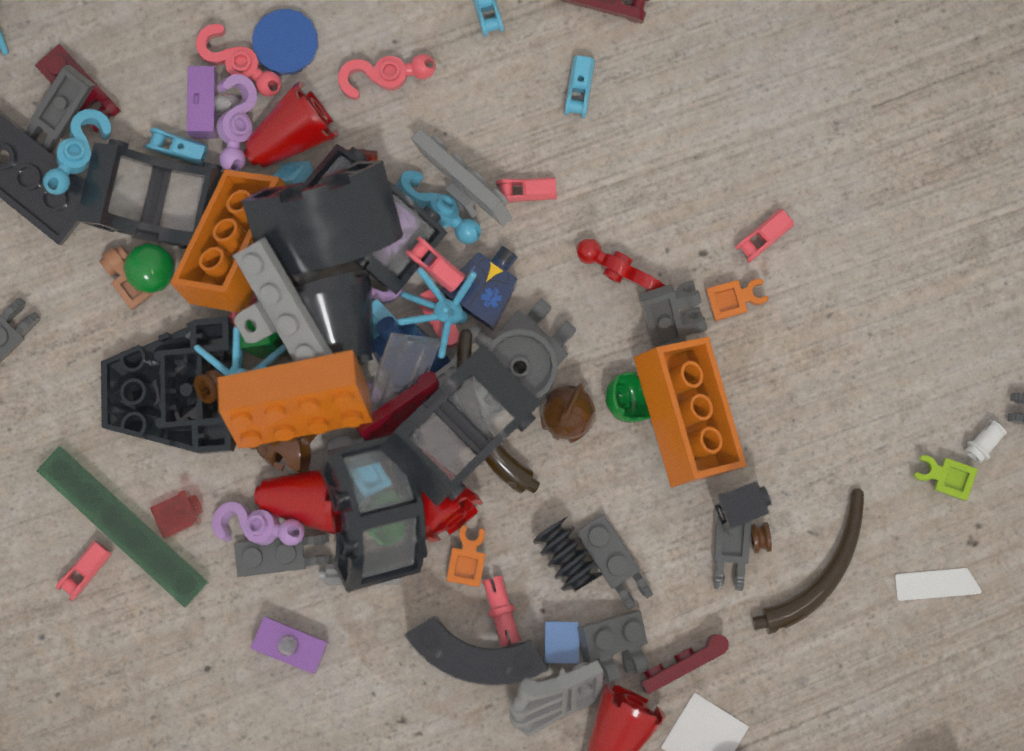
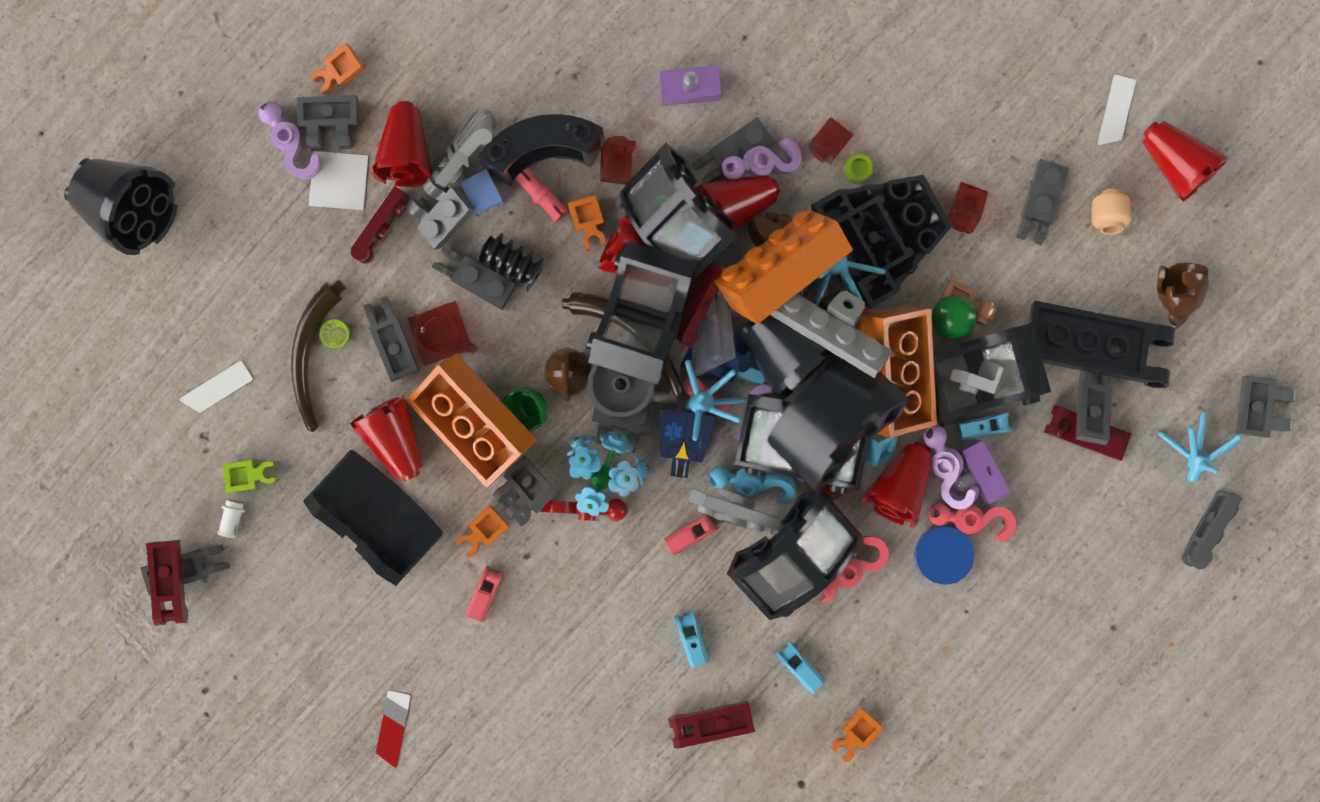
camera: 150 degrees right, 5 degrees up
(74, 373) = (967, 207): none -> clear red bracket
(75, 153) = (1062, 376): medium azure piece -> none
(87, 566) = (877, 65): coral bar -> none
(122, 526) = (866, 109): clear green plate -> none
(151, 187) = (986, 380): none -> light grey bracket
(162, 471) = (858, 168): none -> lime tile
(207, 386) = (859, 245): reddish brown bush -> none
(406, 605) = (616, 160): none -> clear red bracket
(432, 107) = (799, 559): none -> window
(439, 267) = (726, 432): coral bar -> none
(594, 300) = (618, 479): none -> medium azure plant
(678, 521) = (440, 333): none -> clear red hat
(742, 505) = (392, 365): black brick -> none
(761, 537) = (369, 352): reddish brown bush -> none
(780, 439) = (391, 437): none -> red cone
(787, 576) = (335, 334): none -> lime tile
(835, 367) = (375, 515): none -> black panel
(923, 152) = (392, 727): none -> sticker

